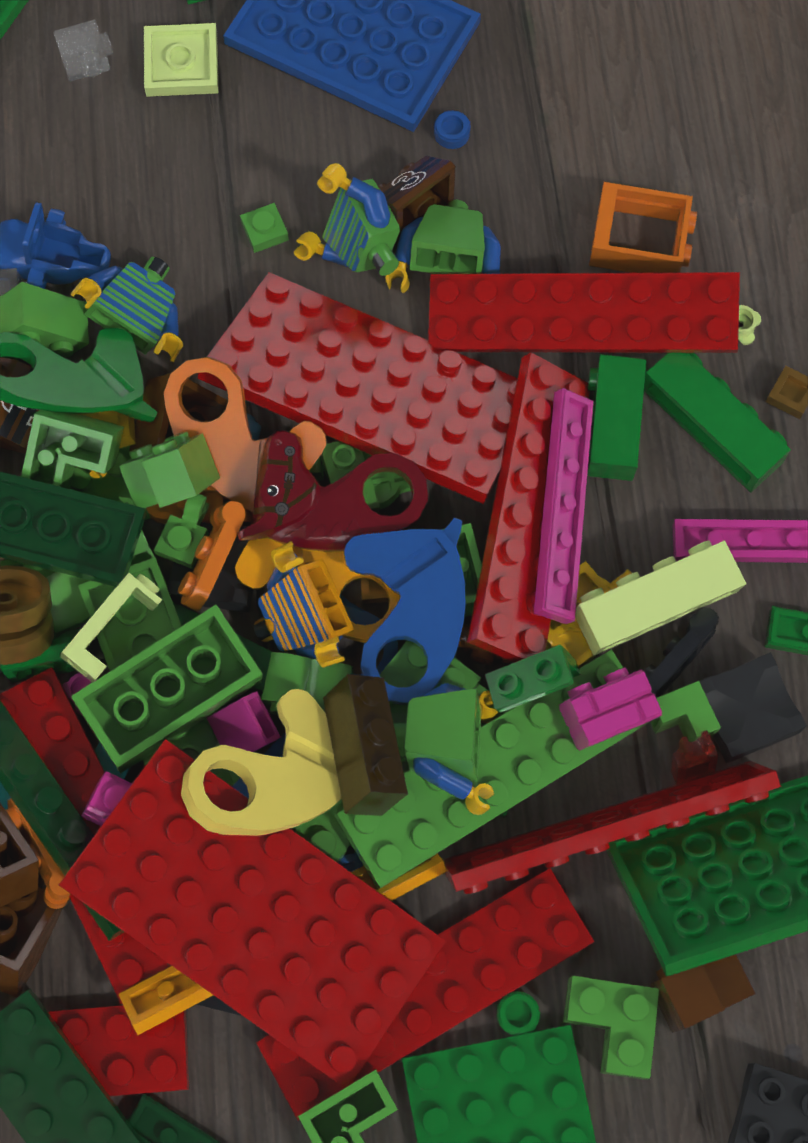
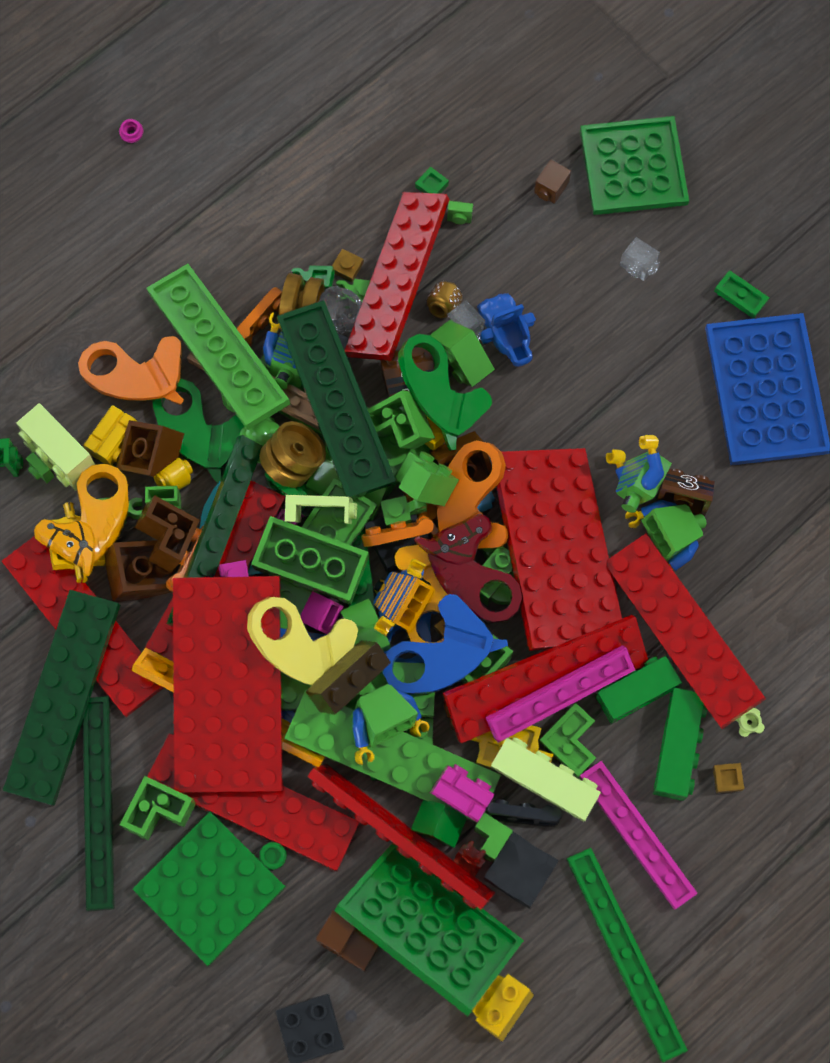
camera: 55 degrees right, 0 degrees up
(135, 302) = (510, 394): torso -> none
(180, 59) = (675, 312): yellowish green plate -> none
(264, 227) = (610, 427): bright green plate -> none
(452, 129) = (748, 484): blue tile -> none
(532, 678) = (450, 741): green bracket -> none
(618, 547) = (564, 743): none -> bright green plate
(620, 768) = (439, 823): none -> green piece
(626, 1015) = (308, 908): bright green brick -> none
(649, 204) = (757, 603): orange window -> none

